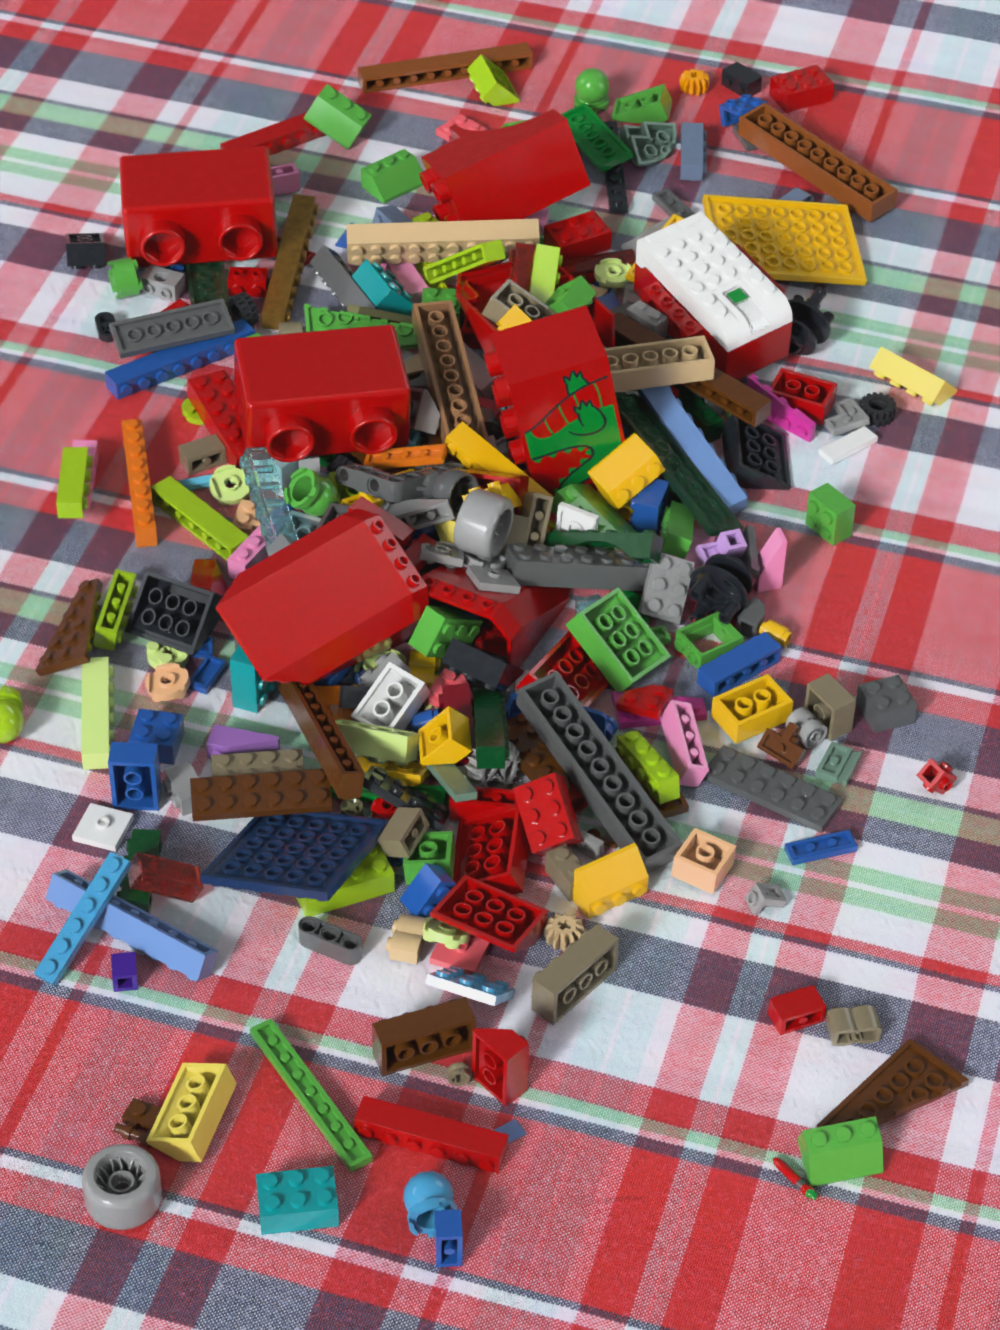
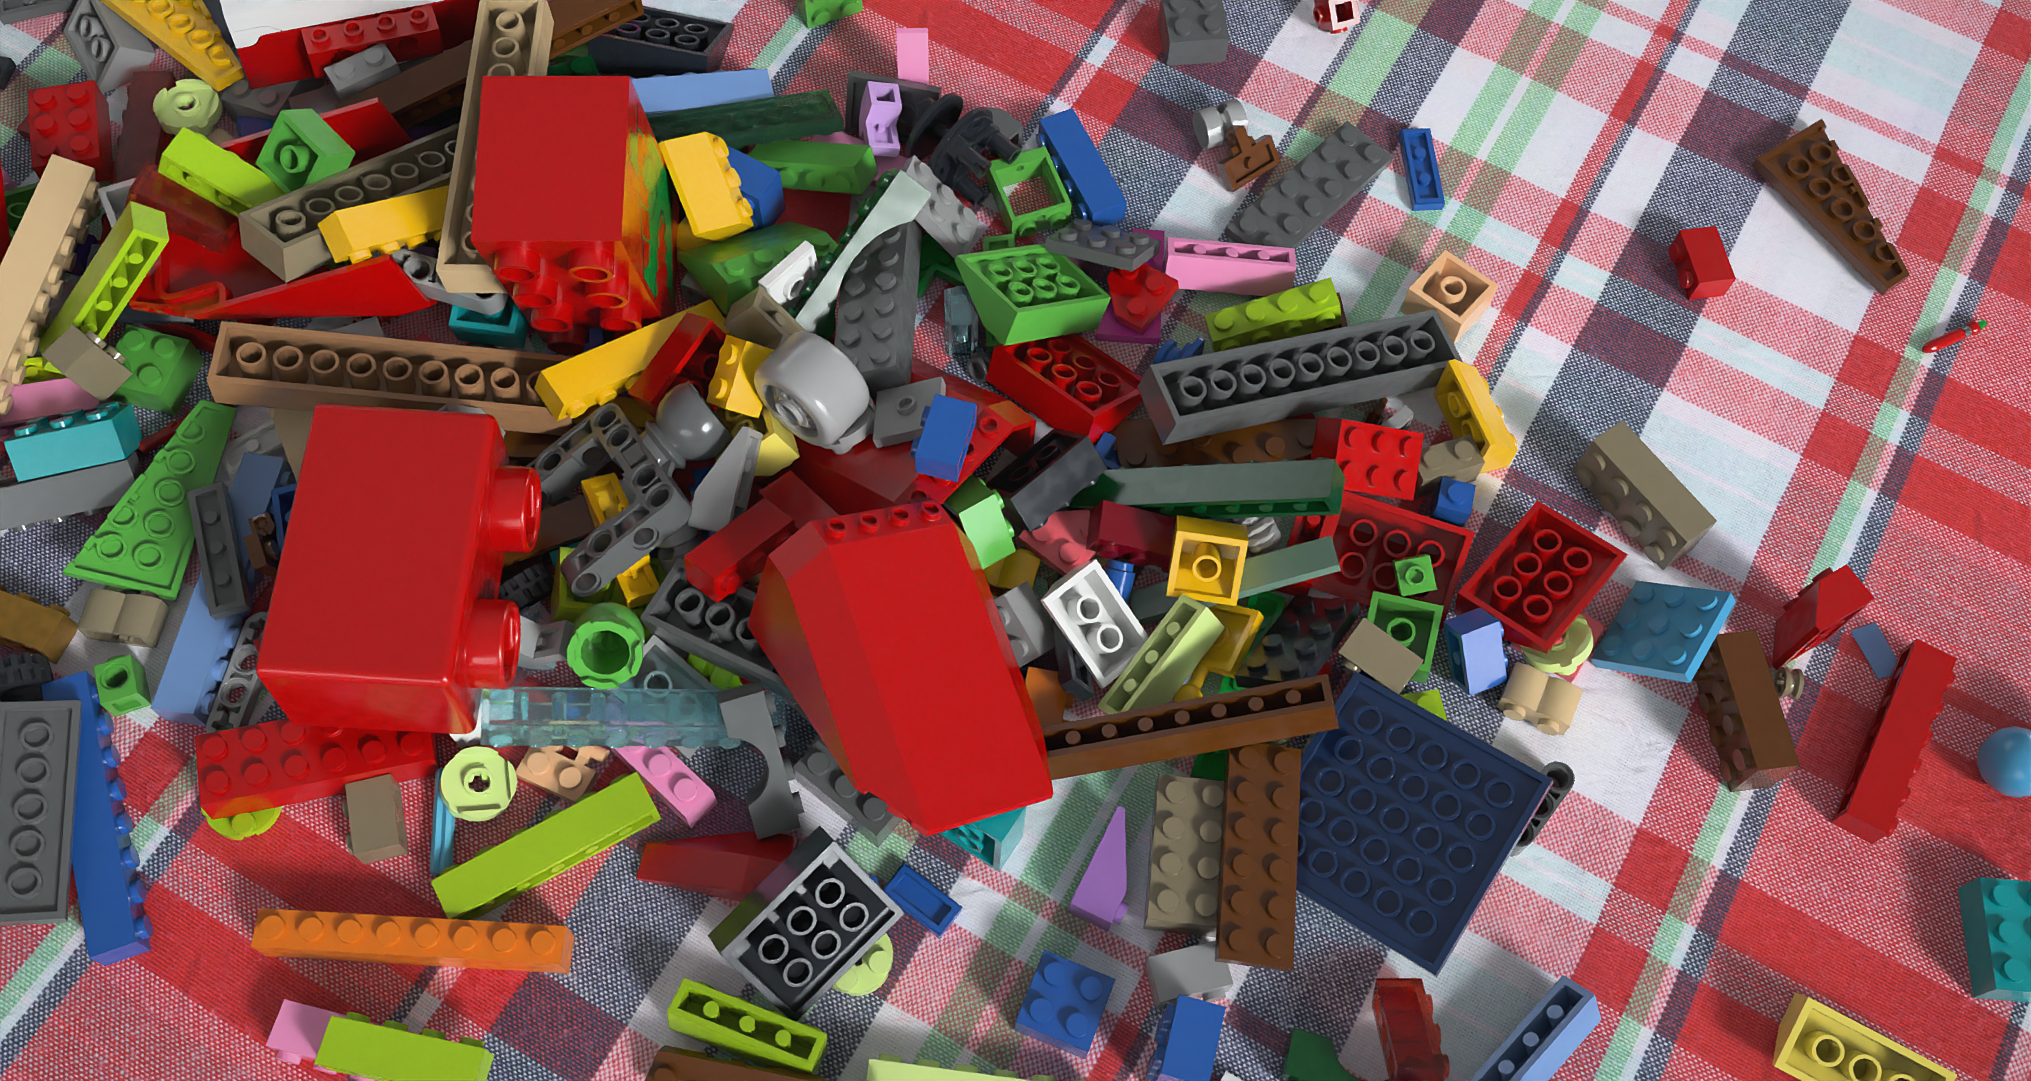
camera: 80 degrees left, 20 degrees up
(176, 689) = (923, 949): light nougat plate -> none
(311, 1095) = (1814, 890): bright green plate -> none
(379, 313) = (147, 453): olive tile -> none
(408, 457) = (565, 474): orange plate -> none
(422, 274) = (87, 363): none -> dark tan brick
(443, 553) = (829, 470): light grey plate -> none
(465, 579) = (944, 438): none -> blue brick
(471, 851) = (1414, 575): none -> bright green brick
(539, 879) = (1452, 502): none -> blue brick
(563, 930) = (1549, 490): tan gear -> none
(673, 674) = (1103, 245): none -> dark grey plate
(751, 708) = (1178, 173): yellow brick -> none
(765, 895) = (1510, 250): light grey bracket -> none
(777, 632) = (1031, 111): yellow brick -> none
(831, 705) = (1198, 82): dark tan brick -> none
(838, 764) = (1285, 109): sand green plate -> none
(842, 1151) = (1931, 270): bright green slope -> none
(853, 1025) = (1730, 209): dark tan brick -> none

